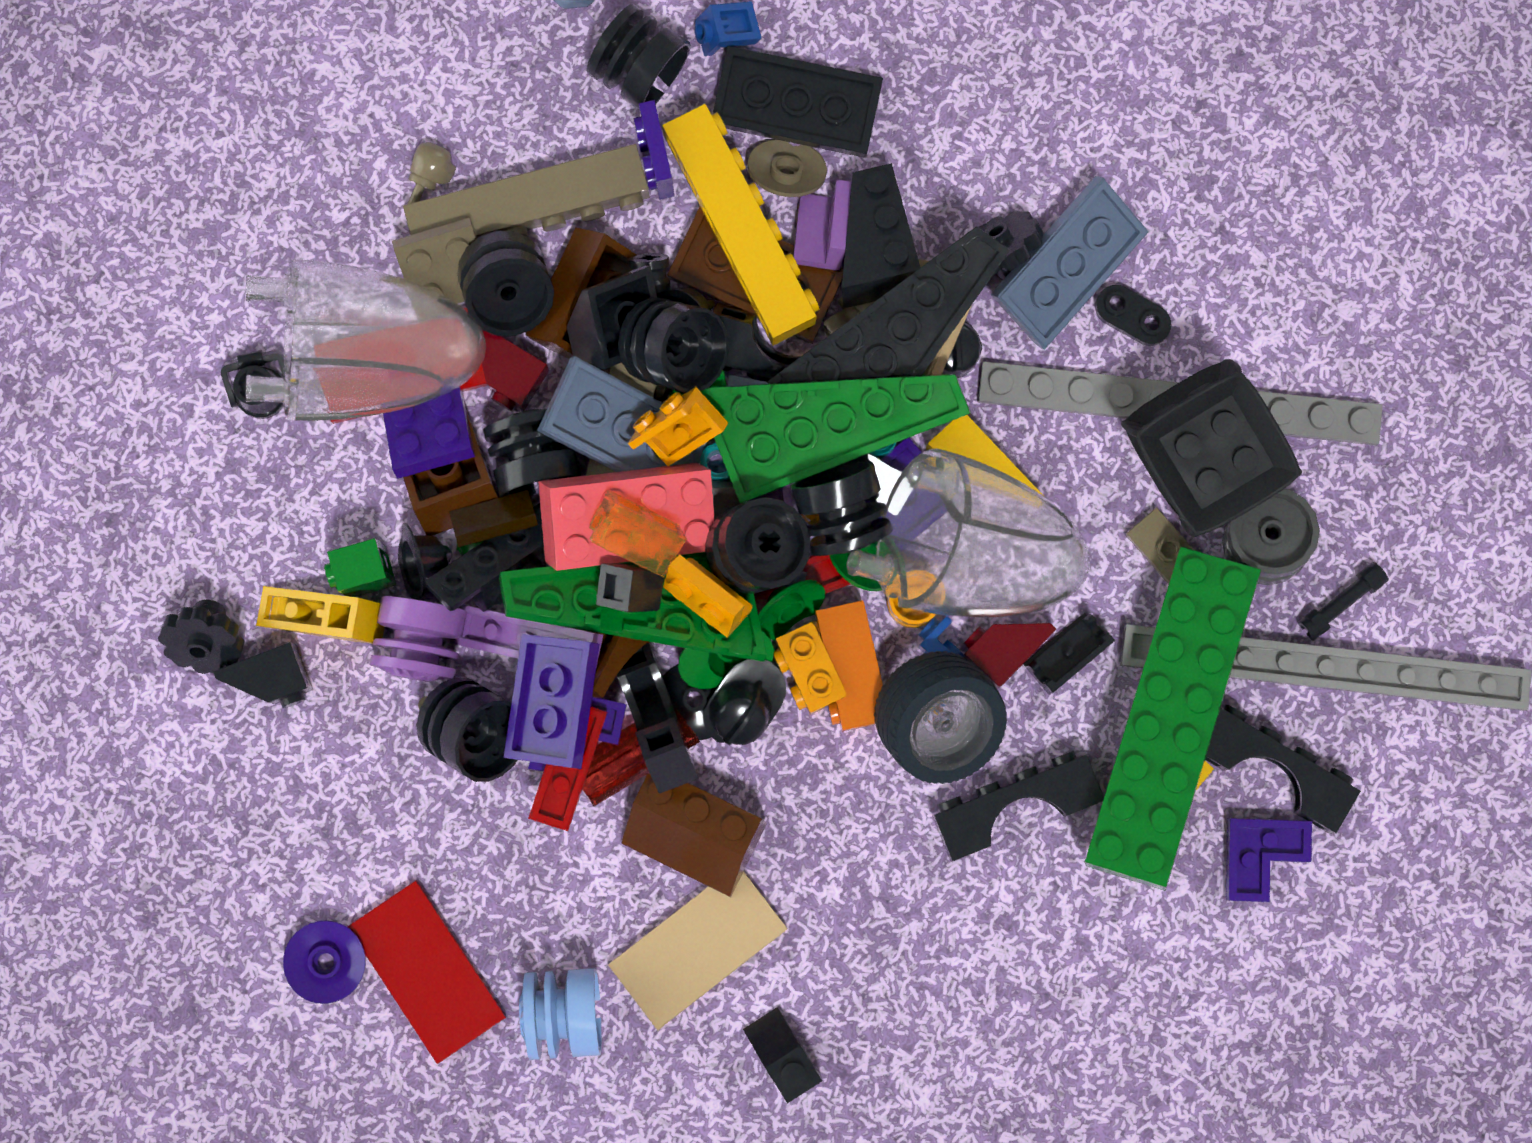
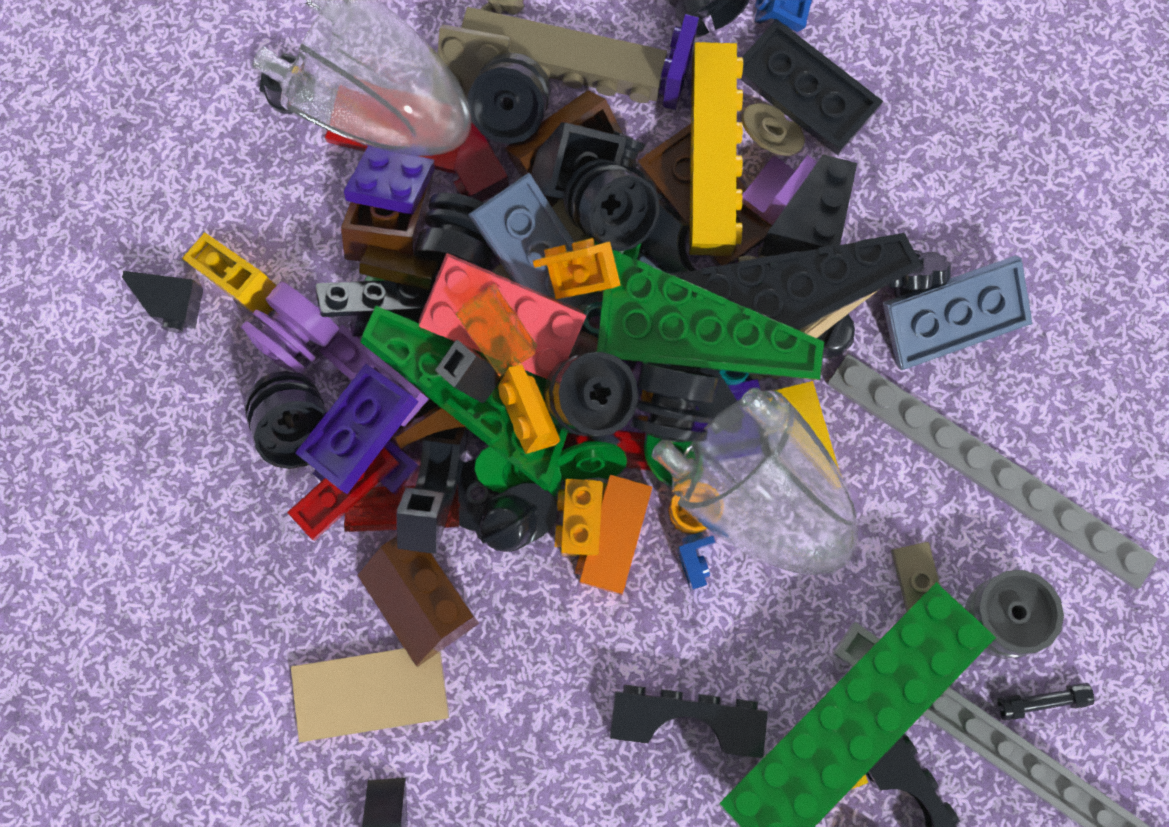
camera: 30 degrees right, 5 degrees down
(201, 637) = (131, 240): black plant -> none
(303, 966) = (58, 535): dark purple dish -> none
(360, 568) = (278, 252): green brick -> none
(420, 559) = (330, 268): black piece -> none
(427, 972) = (149, 593): red tile -> none
(561, 1014) = (224, 685): light blue wheel -> none
(940, 717) = (663, 614): black wheel -> none
(1005, 648) = (745, 587): dark red slope -> none
(1068, 653) = (796, 619): black hinge -> none
(1132, 317) = (986, 381): black plate -> none
(1212, 447) = (1008, 516): black piece -> none

